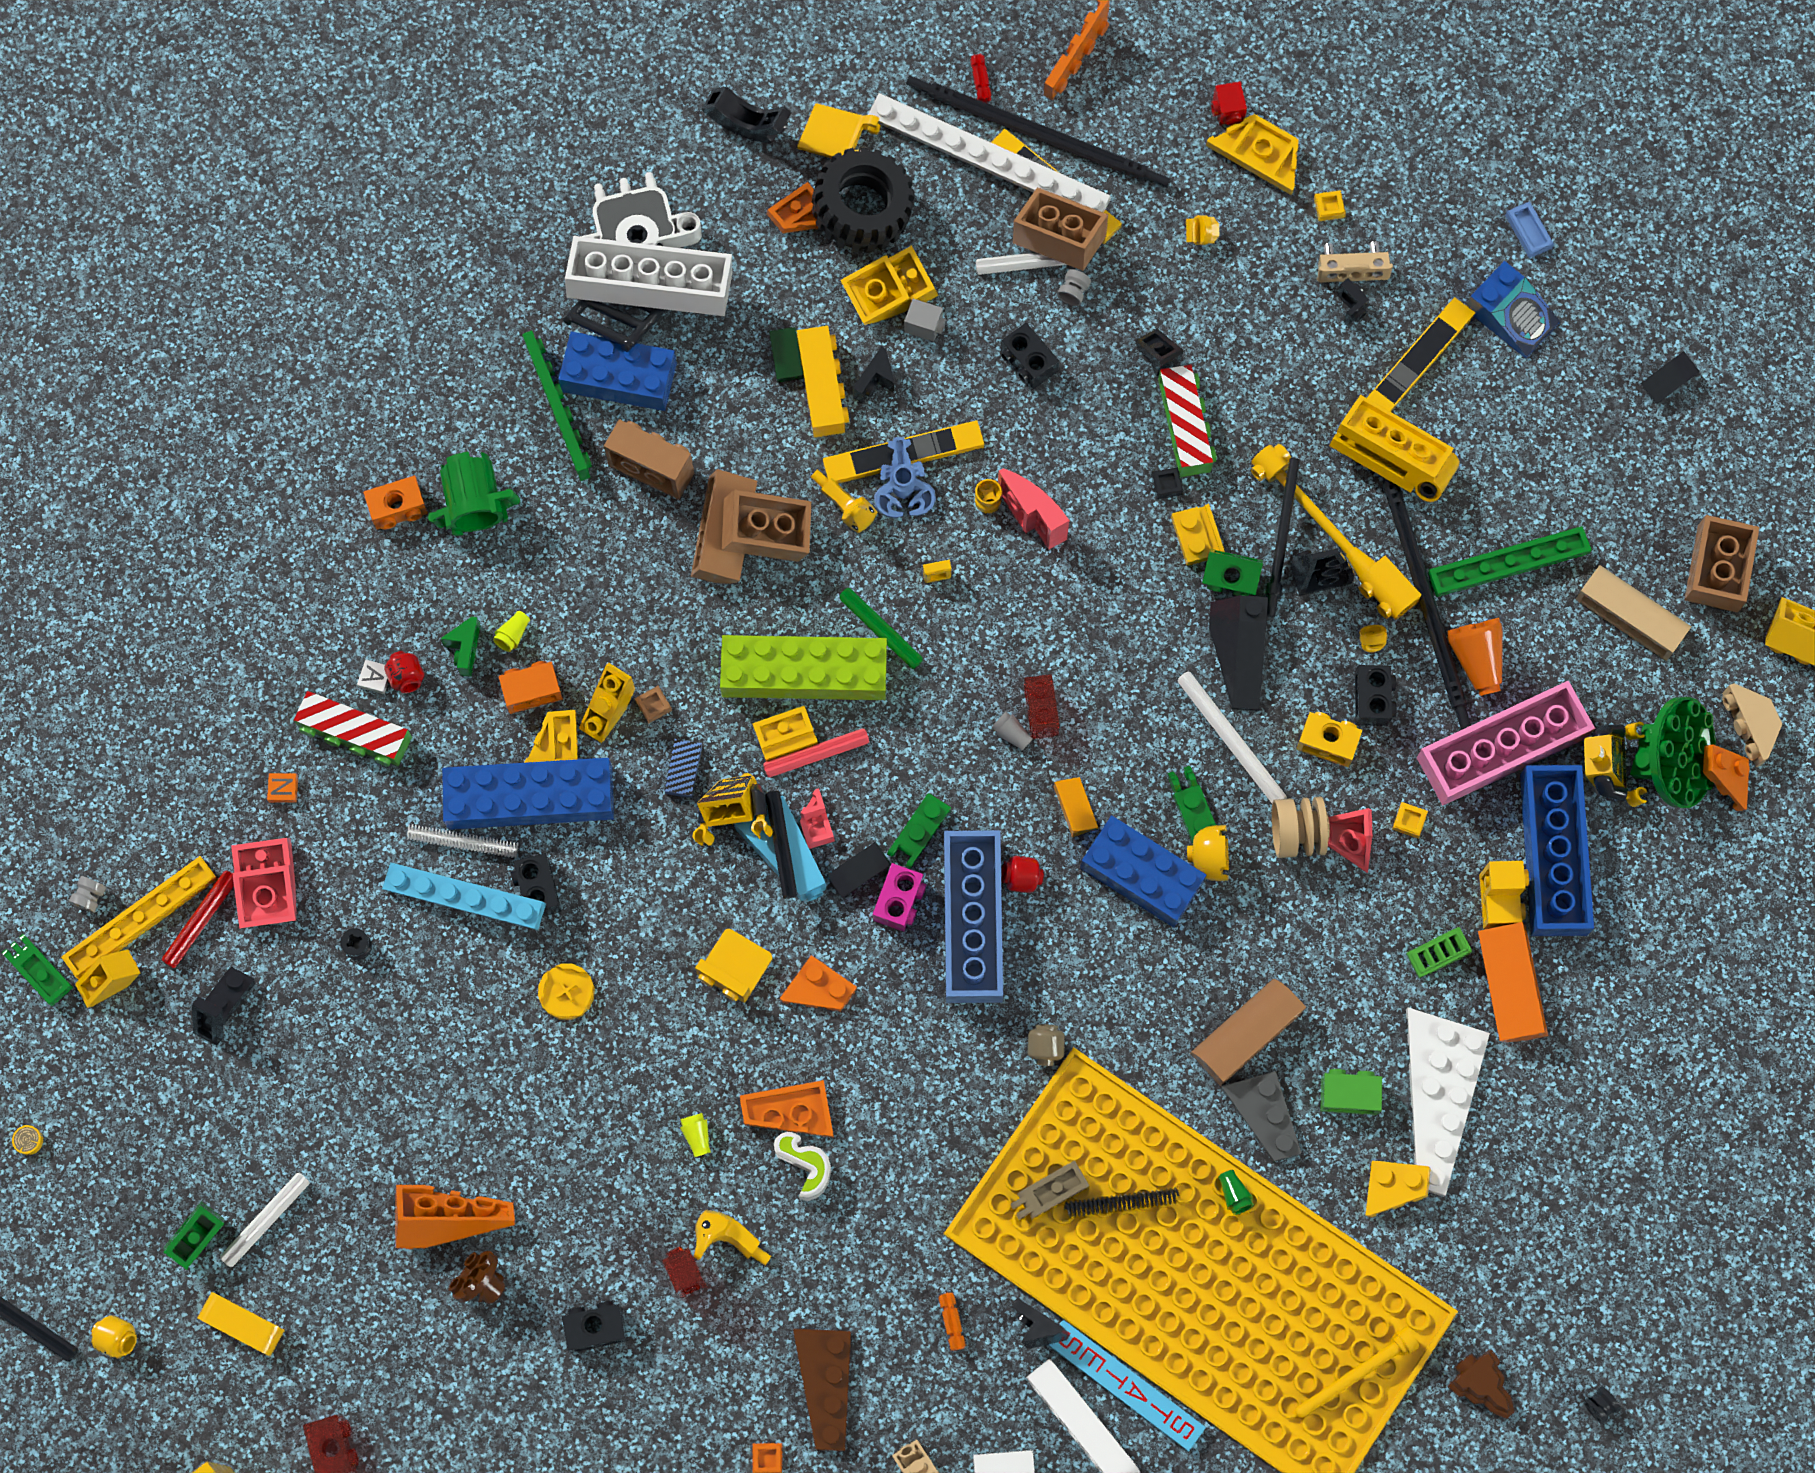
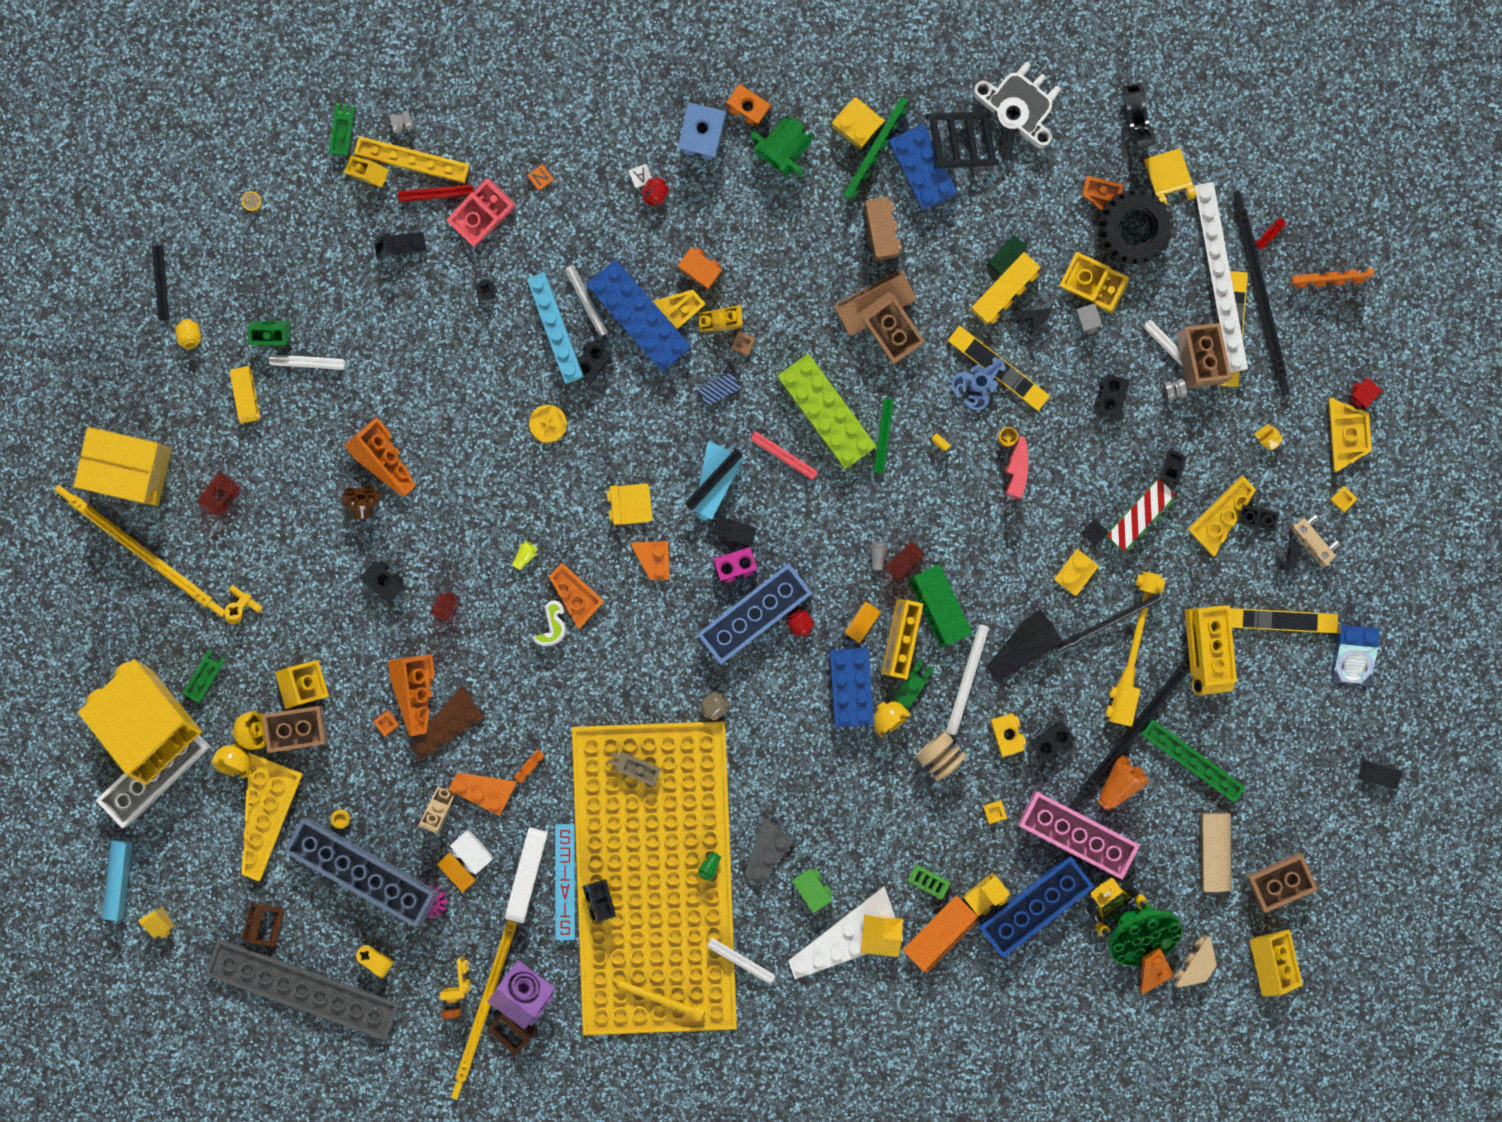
camera: 50 degrees right, 15 degrees up
(353, 729) = (601, 189): brick -> none
(385, 583) = (704, 144): none -> medium blue brick
(466, 639) = (700, 209): green slope -> none
(511, 632) = (724, 231): neon yellow cone -> none
(513, 406) = (857, 123): none -> yellow slope
(648, 275) = (989, 142): white brick -> none
(716, 1226) = (483, 604): yellow animal -> none
(732, 802) = (717, 433): torso -> none
(745, 1389) = (412, 684): none -> orange wedge
(785, 733) = (781, 430): yellow plate -> none
(815, 822) = (743, 486): coral slope -> none
(857, 513) = (942, 370): yellow animal -> none
(920, 829) = (784, 546): green hinge -> none
(940, 1401) = (483, 791): none -> orange wing
(1043, 1329) = (559, 818): black slope -> none
(1080, 1205) = (658, 808): black piece -> none
(1123, 706) = (940, 606): none -> green brick
(1129, 773) = (902, 638): none -> yellow brick
(1180, 1355) = (599, 901): none -> black brick
(1220, 561) = (1067, 599): green brick -> none
(1248, 1031) = (805, 809): medium nougat brick -> none
(1252, 341) = (1218, 519): none -> yellow wing
(1283, 302) = (1258, 517): none -> black slope
(1320, 571) = (1103, 657): black wedge -> none
(1352, 836) = (959, 787): coral slope -> none
(1373, 635) = (1088, 715): yellow tile -> none
(1377, 1242) = (740, 960): none -> white axle
(1395, 1185) = (779, 949): yellow wing -> none
(1466, 1051) = (881, 935): none -> yellow slope
(1483, 1383) = (707, 1068): reddish brown rock -> none
(1529, 229) = (1417, 627): medium blue tile -> none

